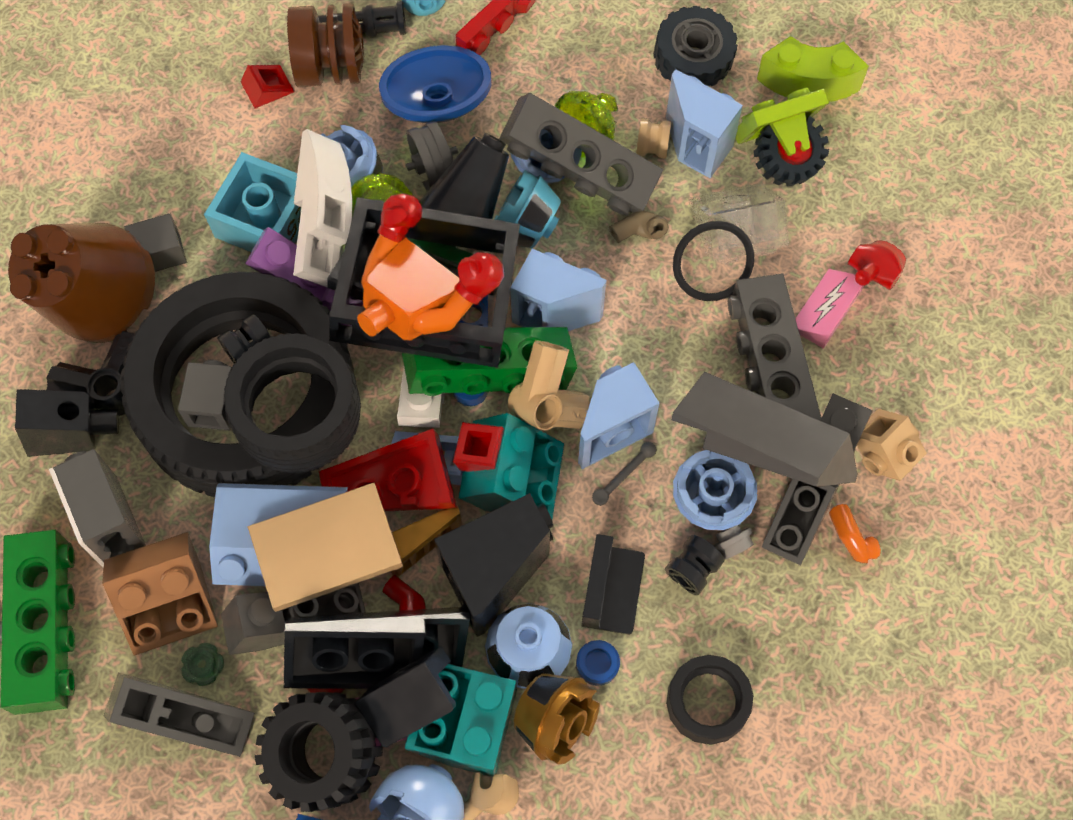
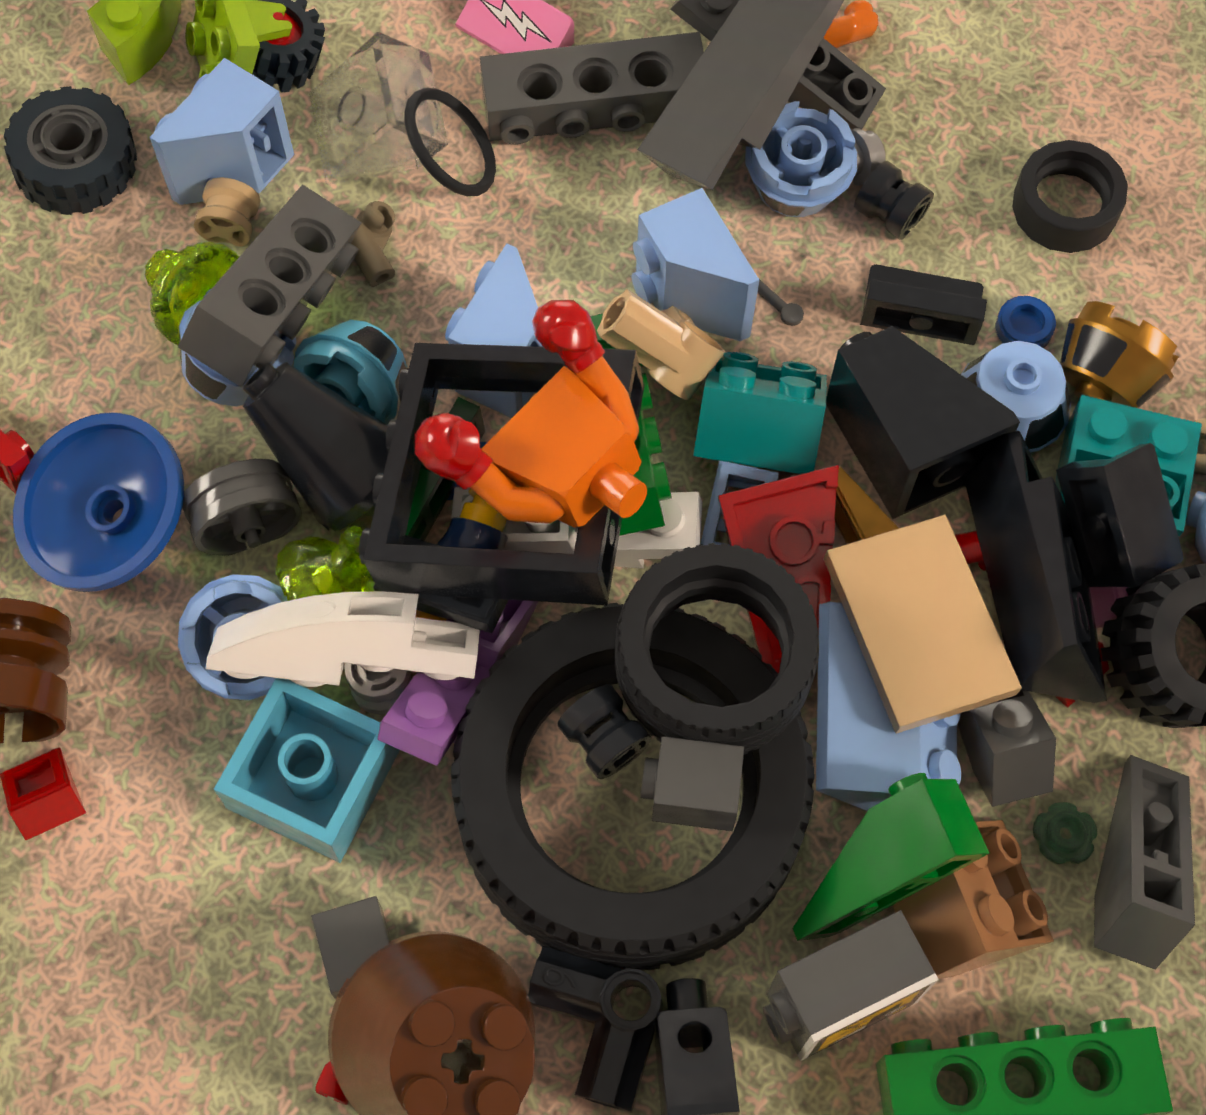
camera: 90 degrees left, 0 degrees up
(170, 531) = (894, 853): none -> green slope
(478, 447) = (752, 430): red slope -> none

